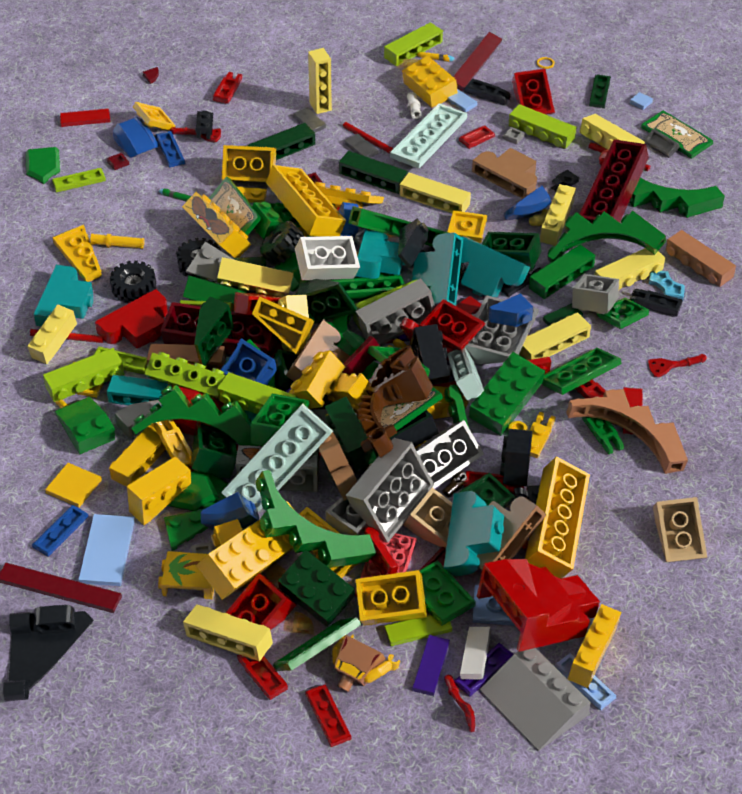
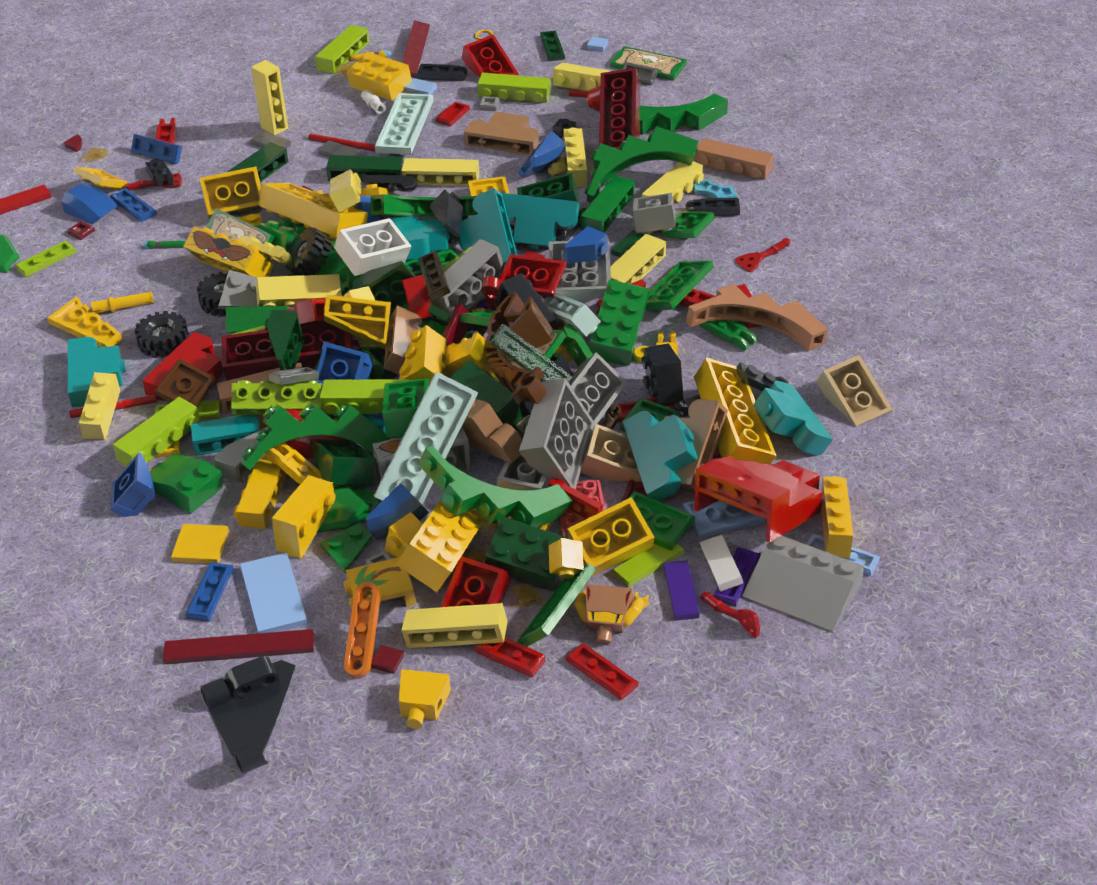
camera: 20 degrees left, 5 degrees down
(43, 418) = (132, 488): none -> blue slope
(125, 337) = (185, 382): none -> reddish brown tile
(154, 609) = (362, 630): none -> orange plate
(163, 90) = (95, 153): none -> clear yellow tile
(165, 641) = (387, 659): none -> dark red tile
(173, 684) = (422, 695): none -> yellow torso
(204, 361) = (293, 376): none -> flat silver tile
(212, 100) = (156, 148): none -> blue tile
(248, 229) = (274, 253): none -> light yellow hinge
(334, 194) = (345, 190): none -> light yellow brick
(340, 606) = (565, 558): none -> yellow brick
(344, 314) = (417, 296): none -> red tile
(366, 301) = (434, 275): none -> dark brown tile
(389, 192) = (391, 181): none -> black hinge
(399, 411) = (526, 355): none -> clear green tile
(602, 492) = (755, 378): none -> black hinge
(607, 533) = (790, 416): none -> teal brick

